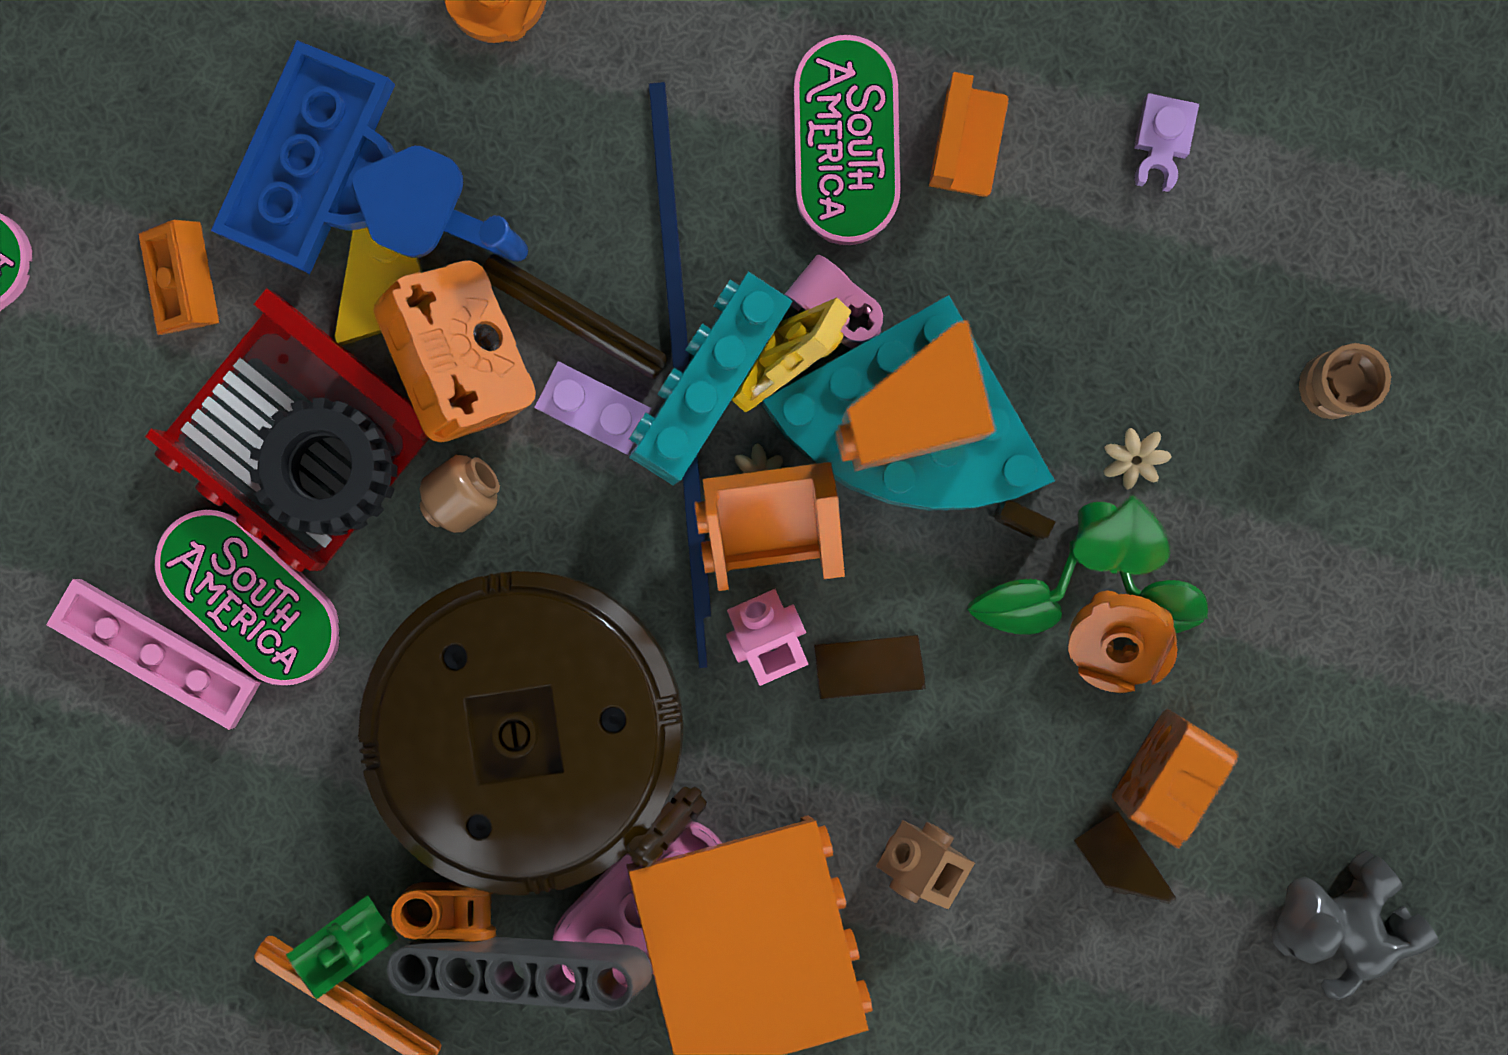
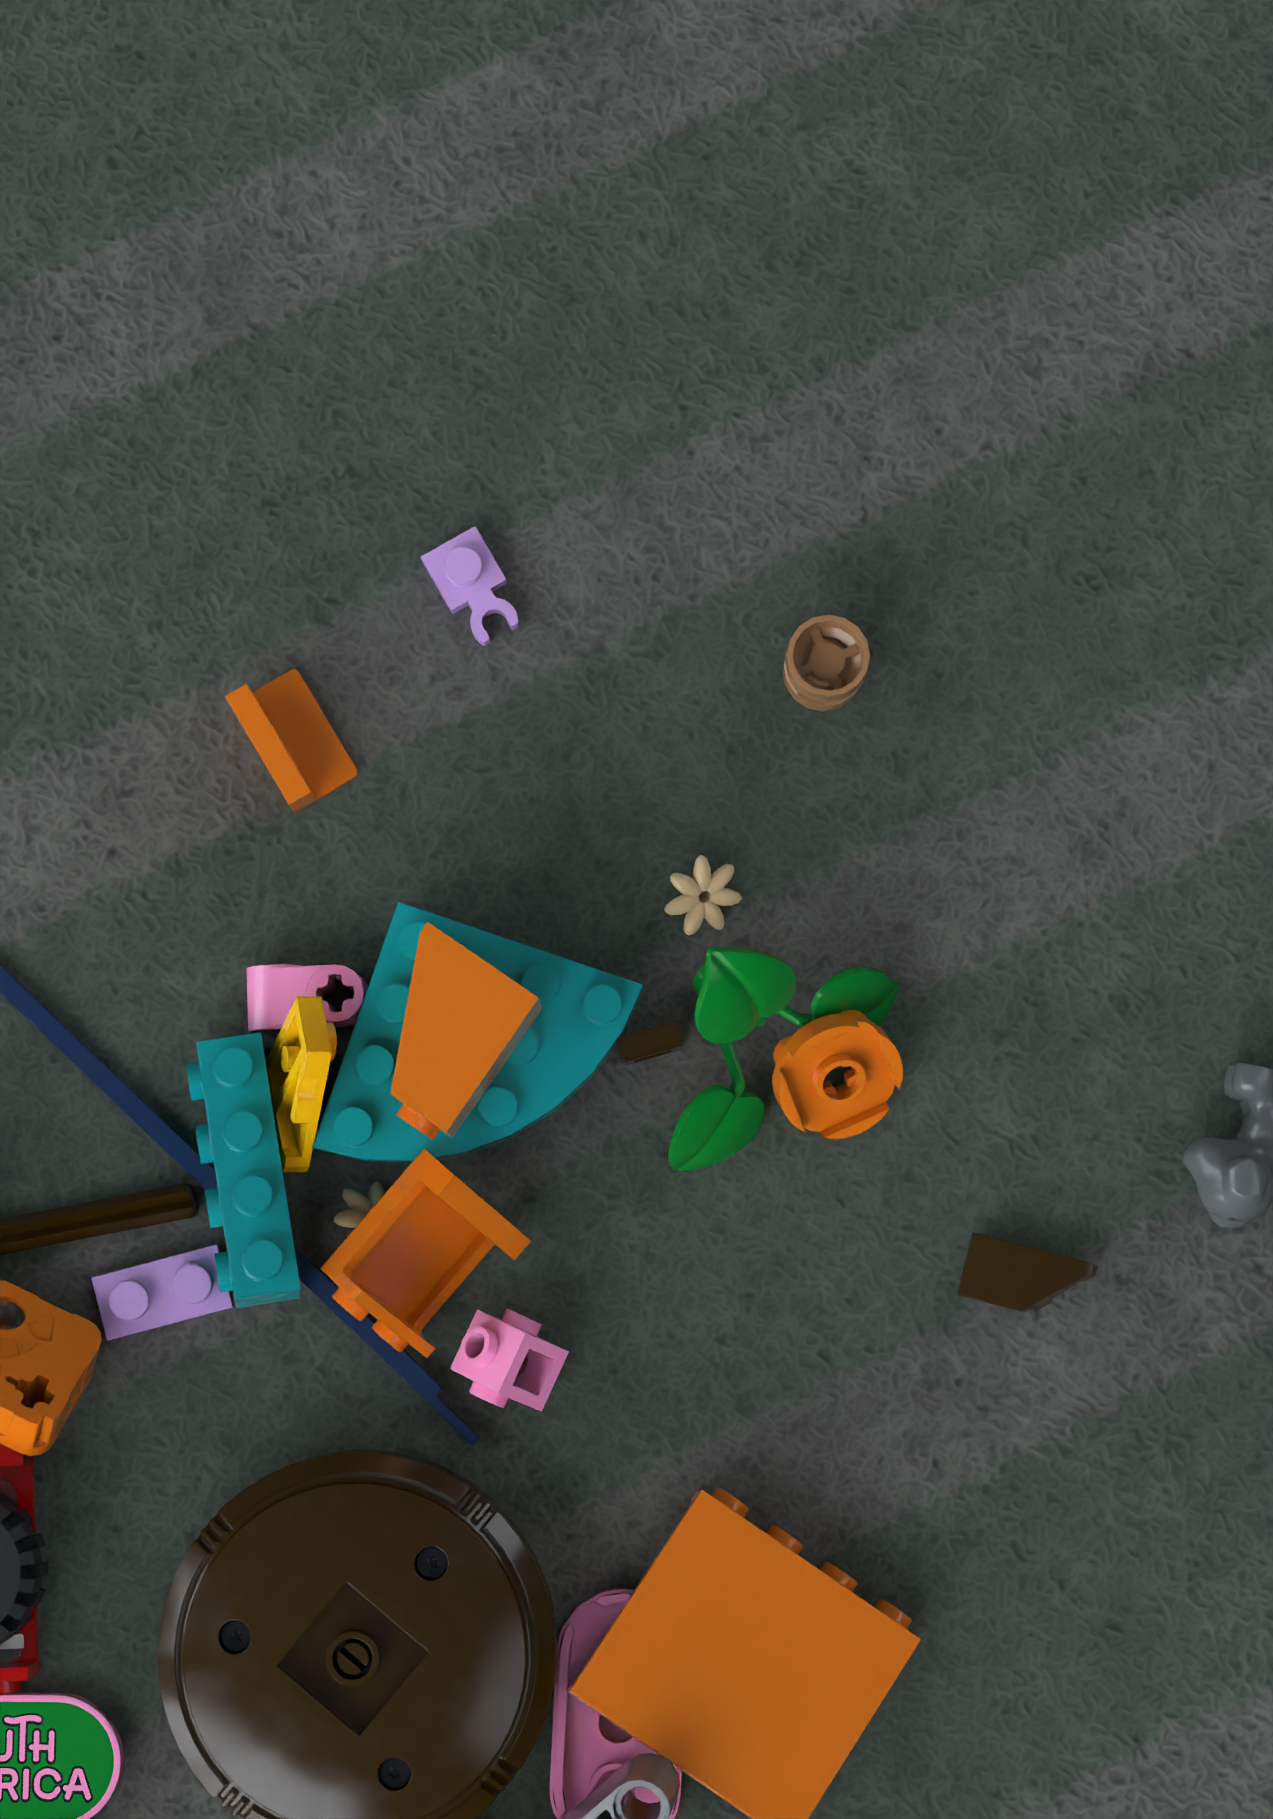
camera: 45 degrees left, 5 degrees down
(459, 493) = (106, 1483): medium nougat head -> none
(667, 827) = (571, 1618): dark brown axle -> none
(846, 139) = (181, 838): tile -> none
(869, 667) = (629, 1303): dark brown slope -> none
(924, 864) = (825, 1443): medium nougat brick -> none
(1174, 778) = (984, 1159): orange axle -> none

